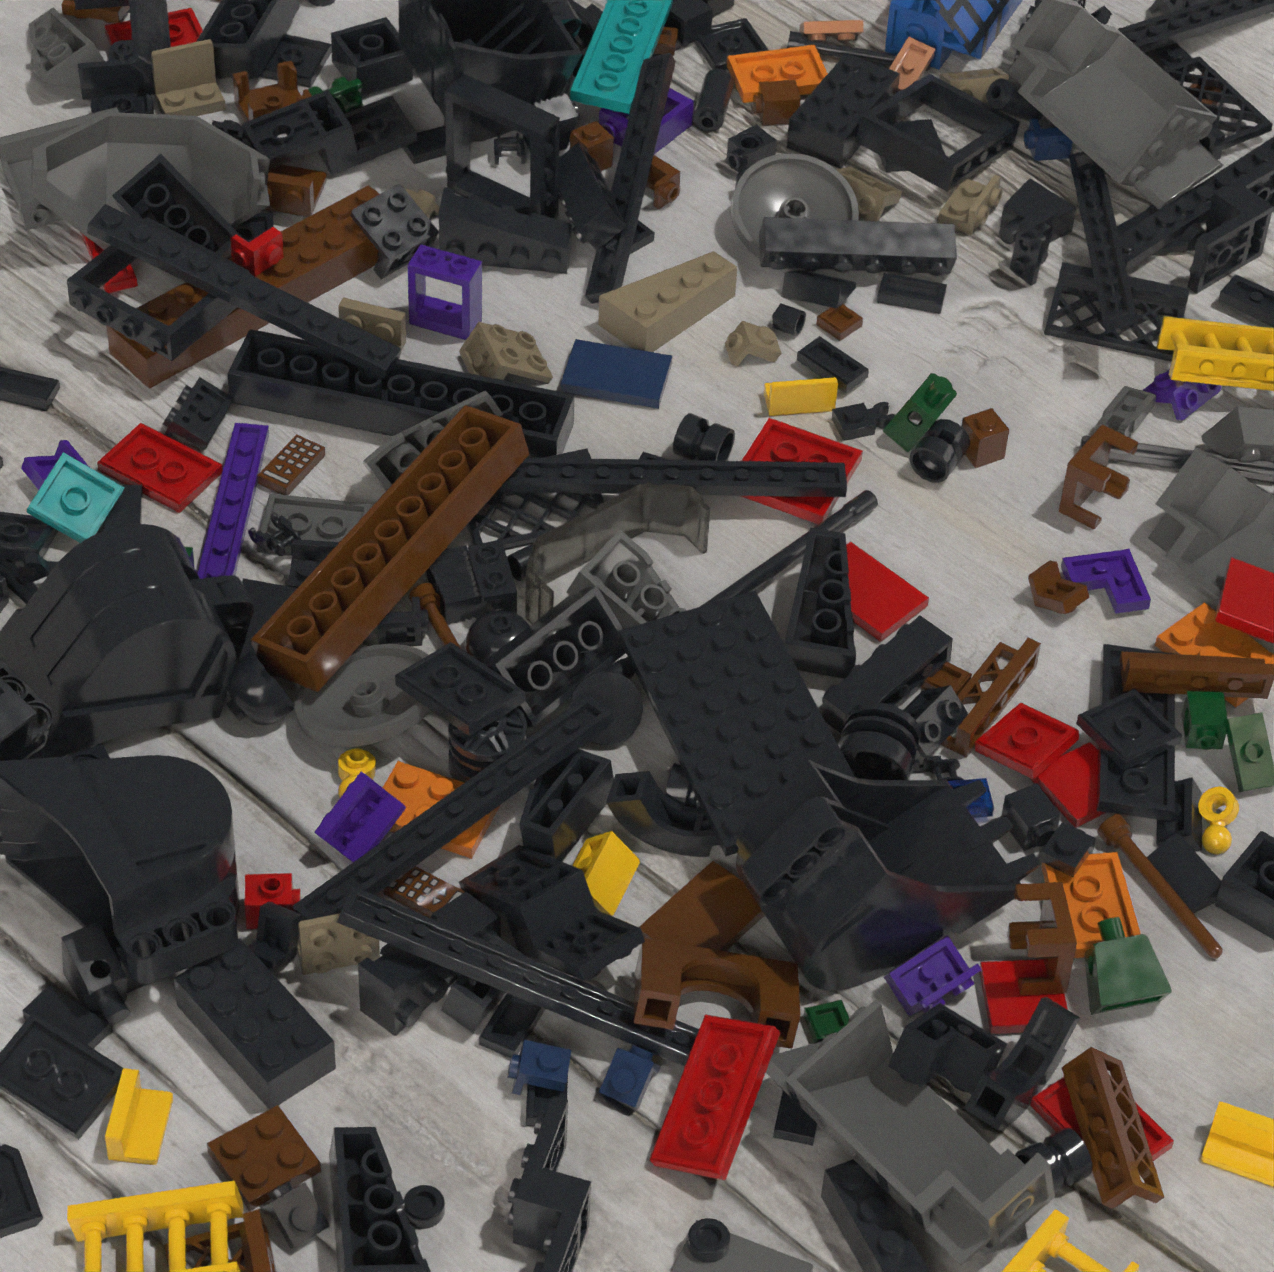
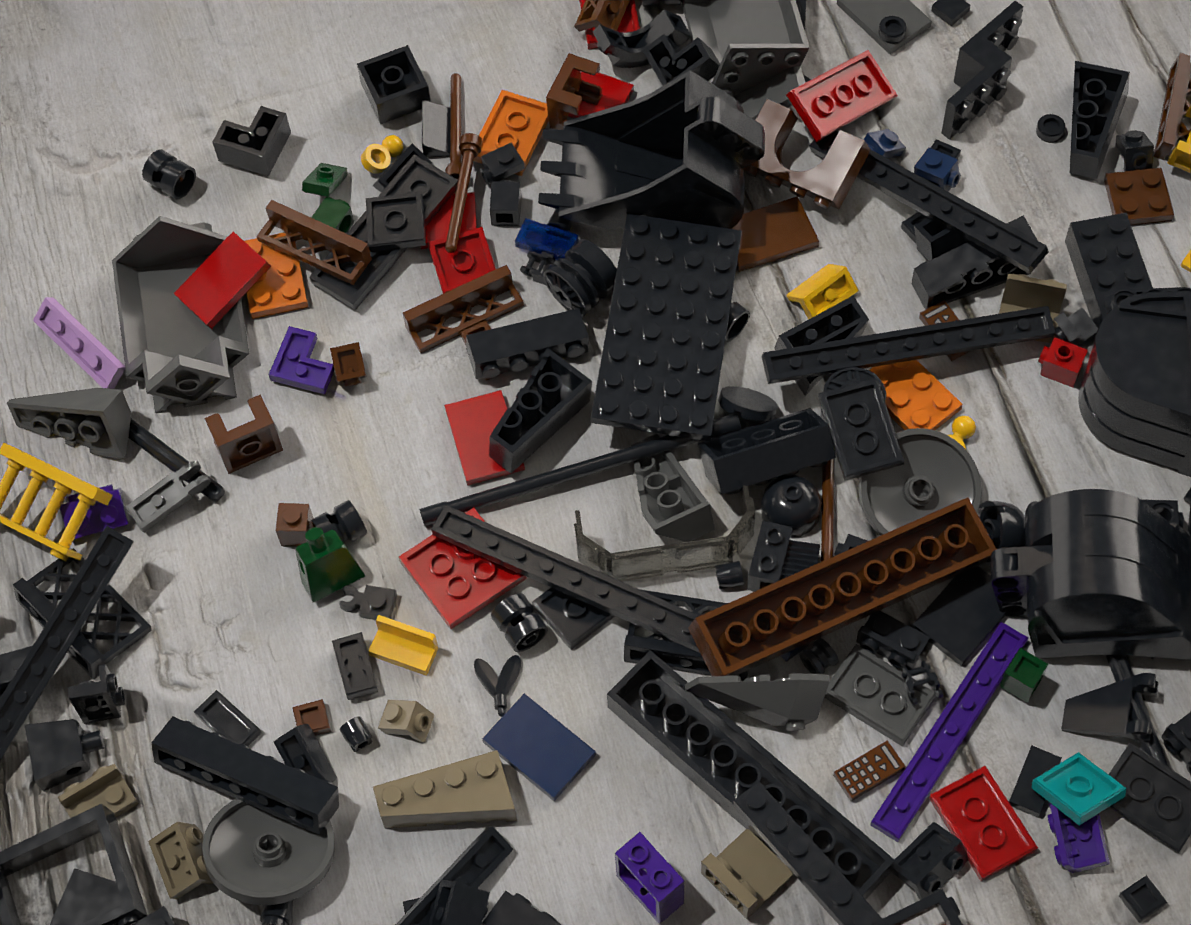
camera: 145 degrees left, 15 degrees up
(360, 818) = (975, 385): dark purple bracket -> none
(498, 351) = (628, 800): dark tan bracket -> none
(552, 912) = (878, 257): black bracket -> none
(657, 818) = (766, 305): black arch -> none
(693, 404) = (498, 686): none -> black piece
(937, 714) = (523, 302): black bracket -> none
(1117, 843) = (470, 147): none -> reddish brown piece
(1123, 970) = (532, 71): dark green torso -> none

